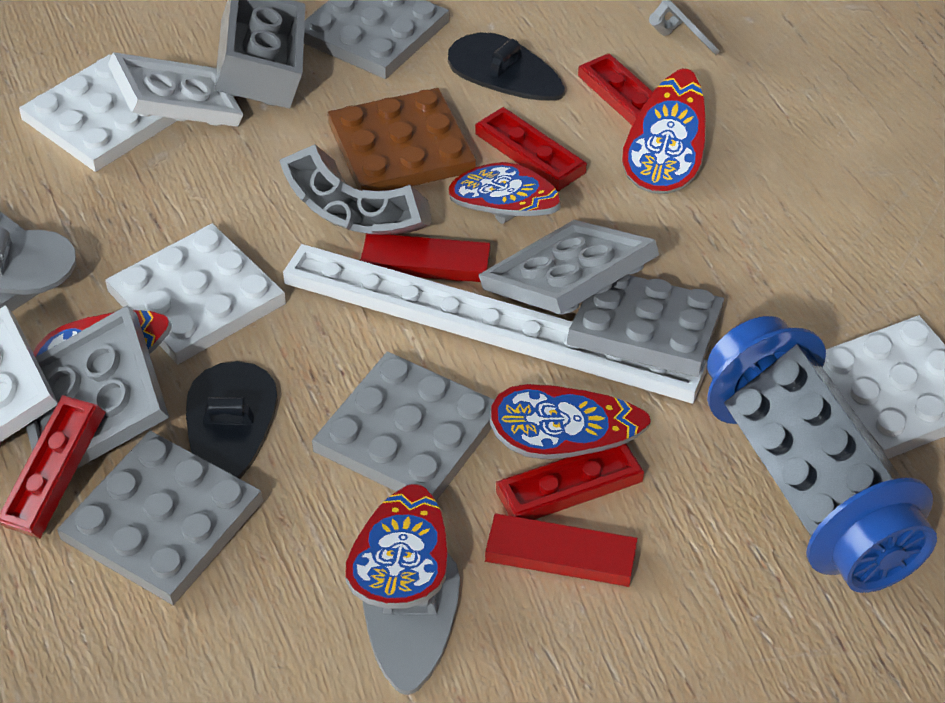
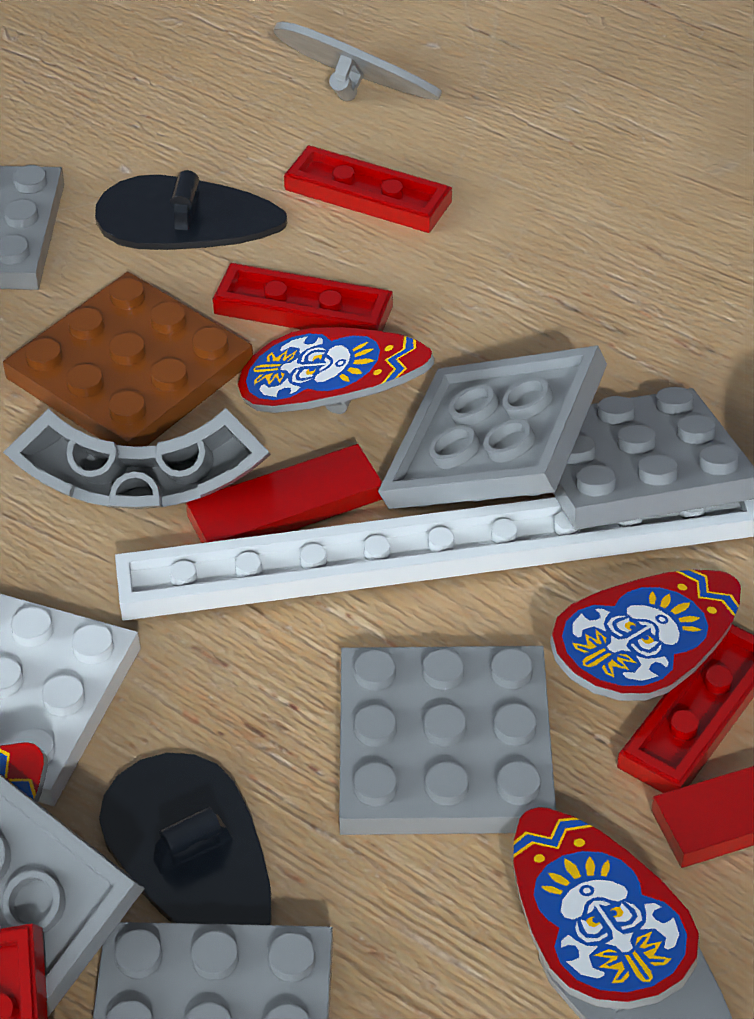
camera: 30 degrees left, 0 degrees up
(667, 136) = (470, 218): shield -> none

